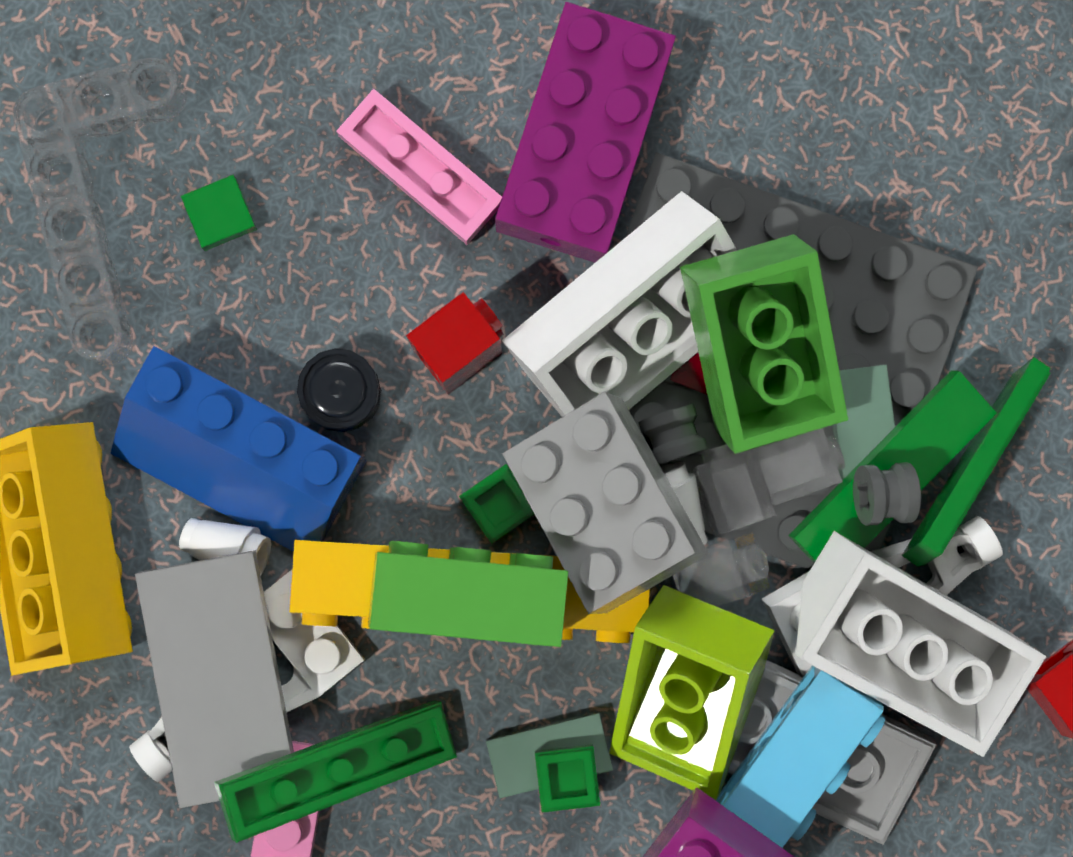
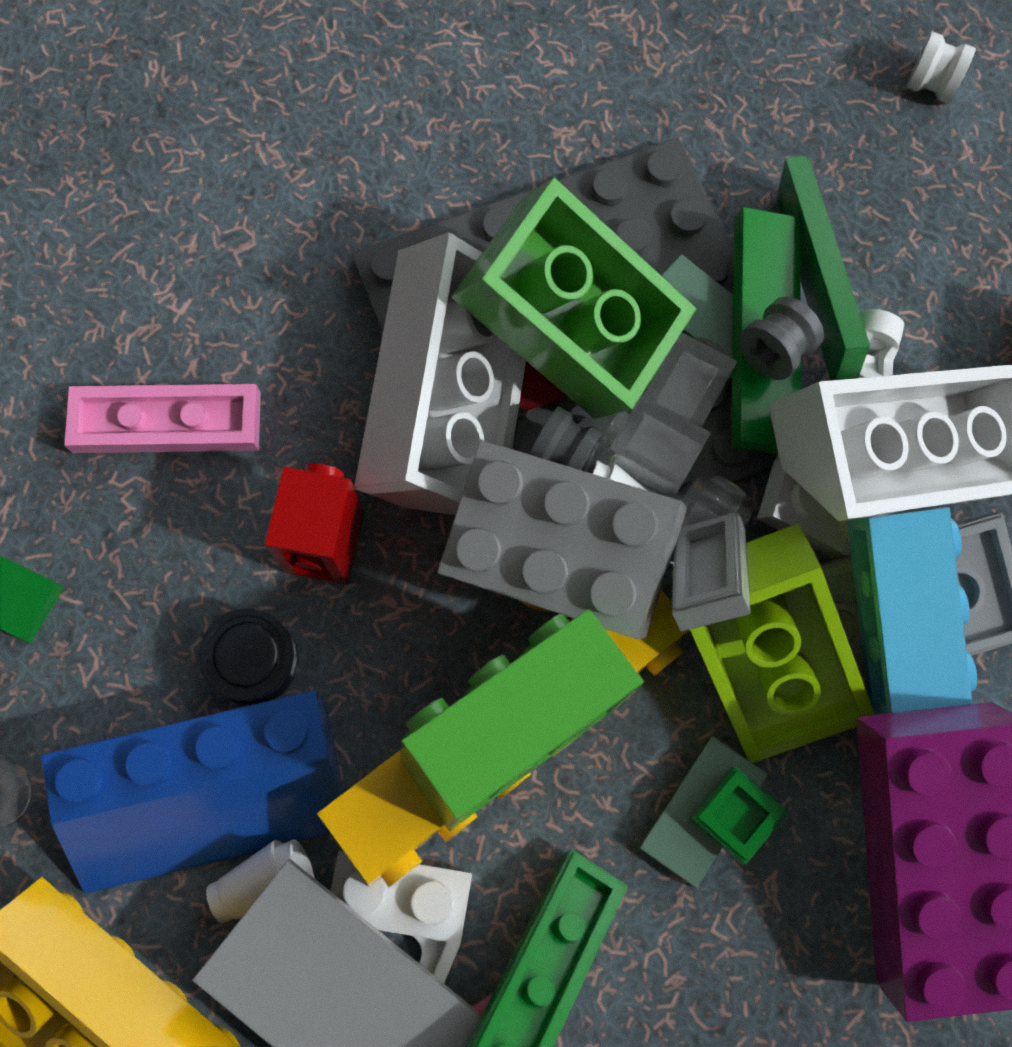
camera: 40 degrees left, 10 degrees down
(497, 504) = (469, 634): green tile -> none
(584, 133) = (280, 281): magenta brick -> none
(682, 611) = (710, 572): none -> light grey tile

